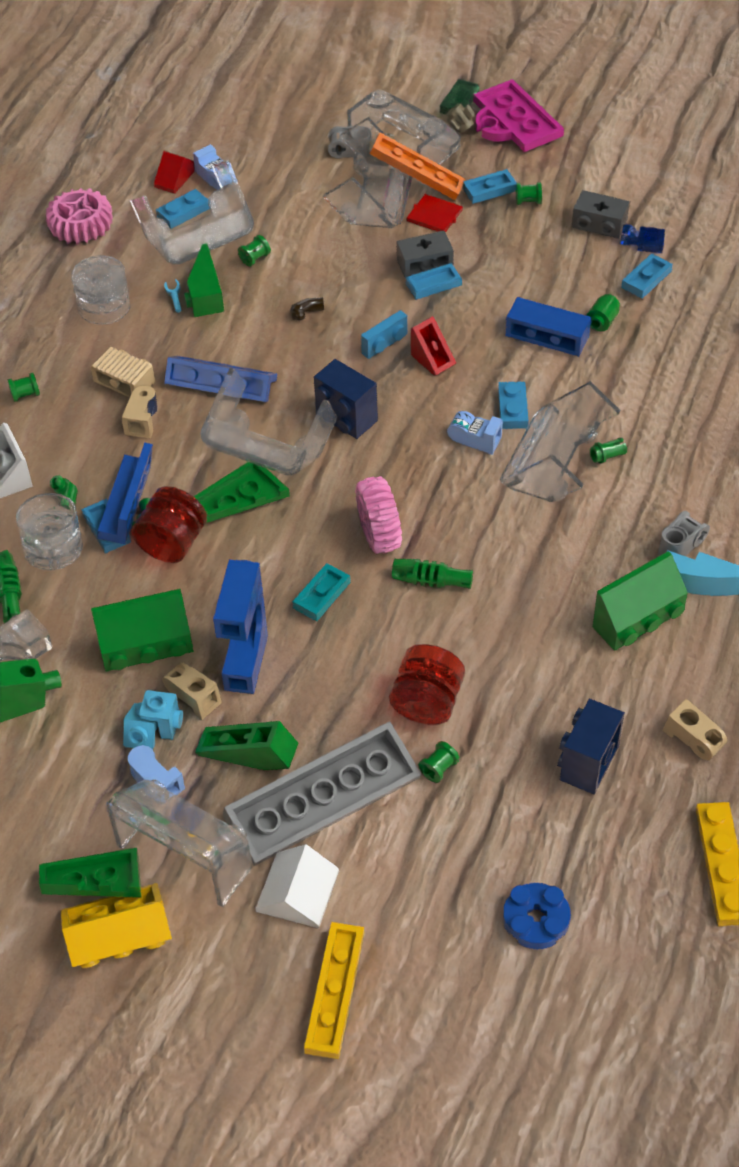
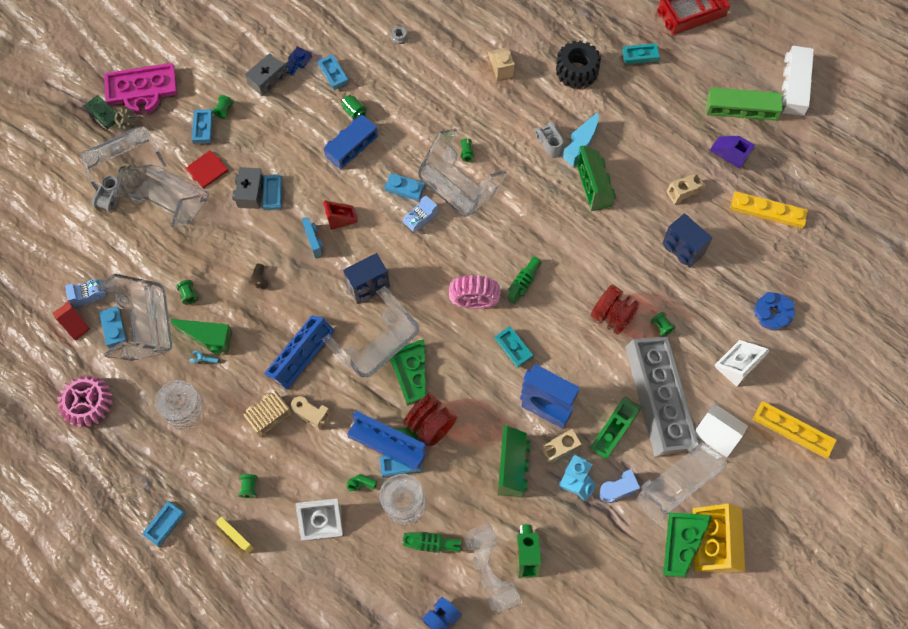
camera: 70 degrees left, 15 degrees up
(417, 166) = (167, 160): orange plate -> none
(420, 886) = (741, 361): none -> white slope

